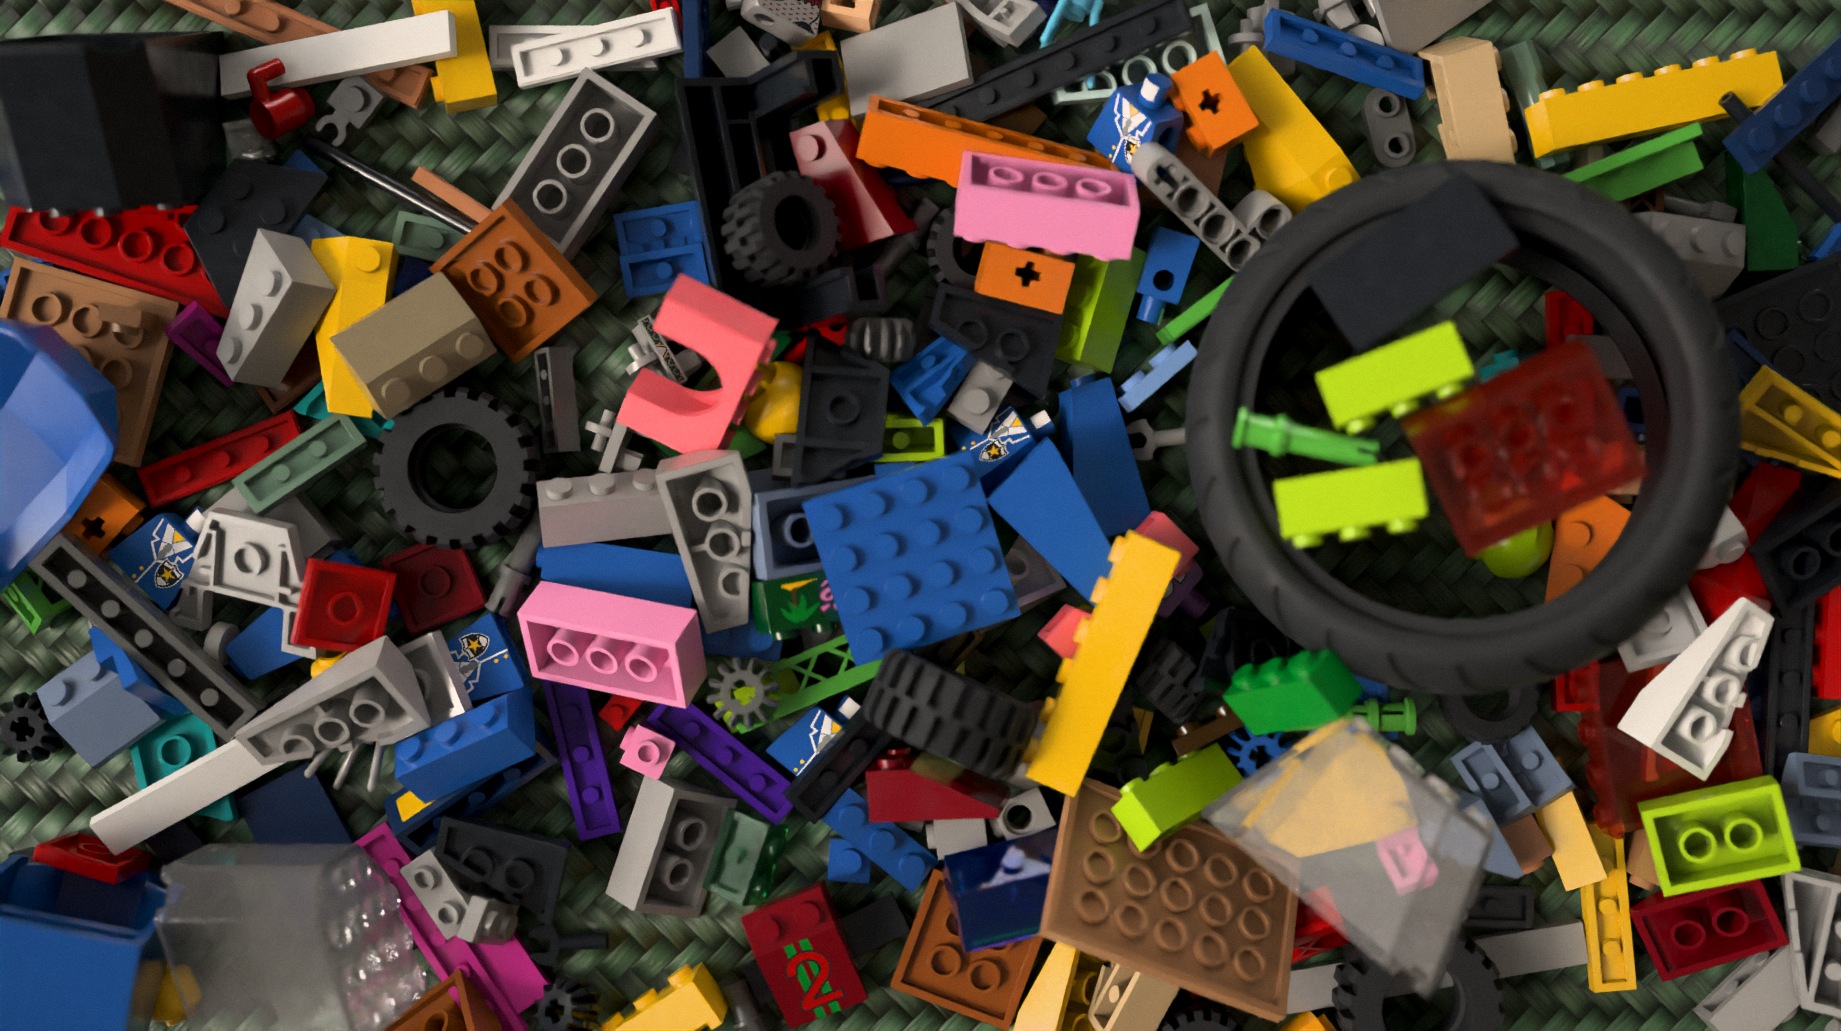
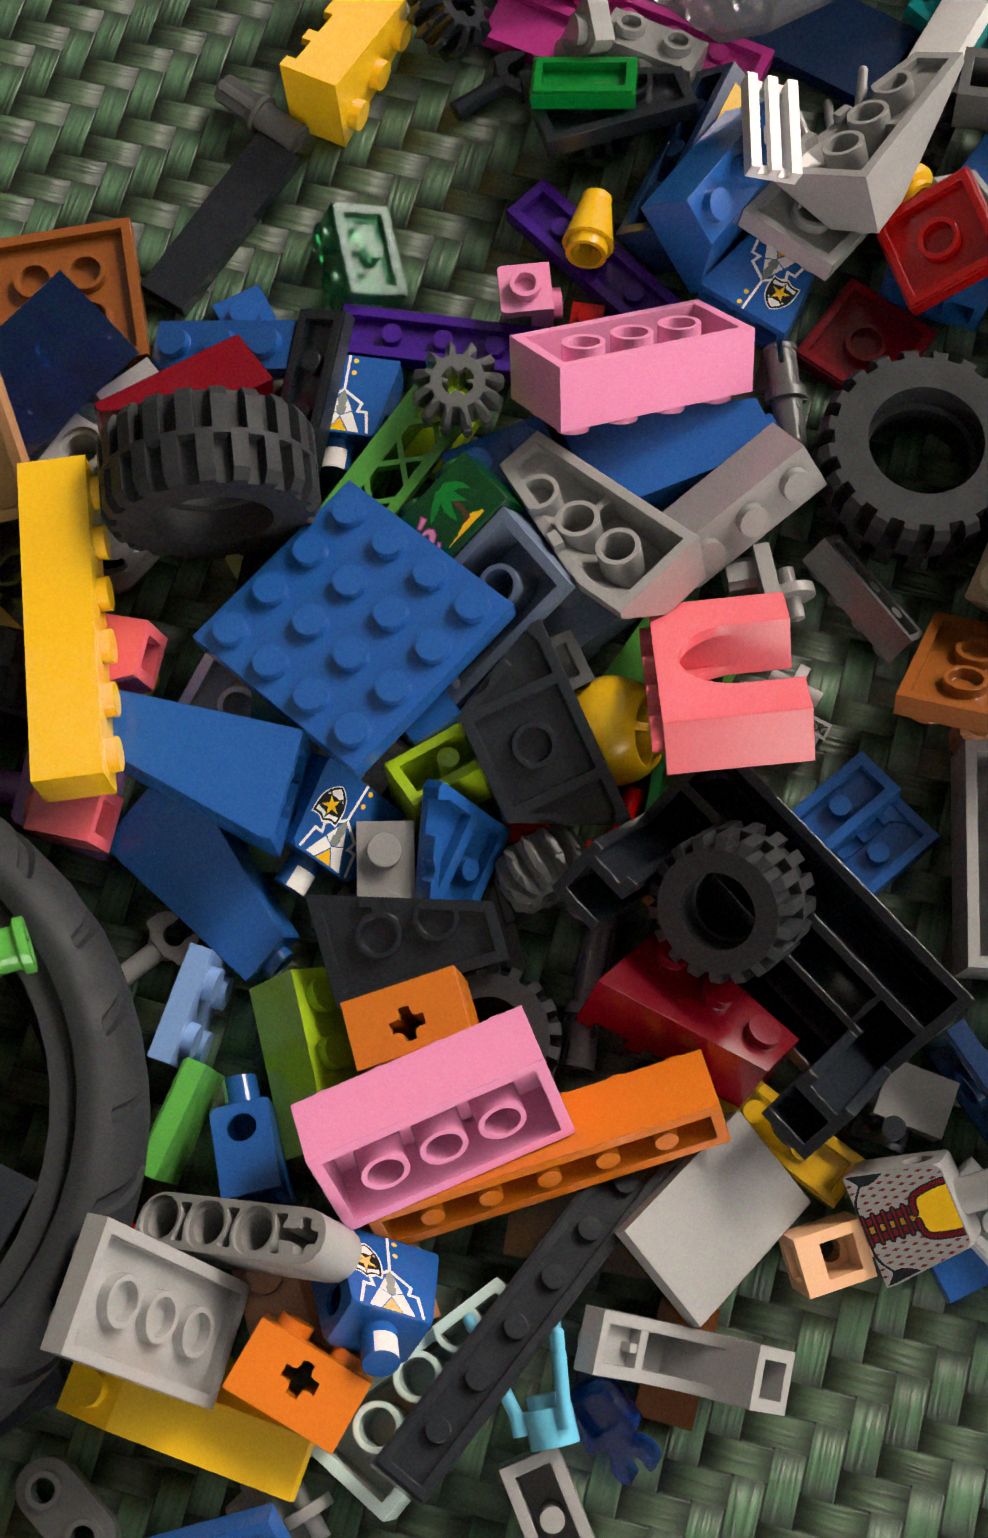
camera: 150 degrees right, 15 degrees down
(410, 740) = (788, 137): none -> white tile
(512, 881) = (584, 83): none -> green tile
(574, 772) = (590, 230): none -> yellow cone
(668, 847) = (445, 222): light grey slope -> none
(804, 954) = (242, 198): dark red slope -> none
(1281, 181) = (146, 1313): none -> light grey plate

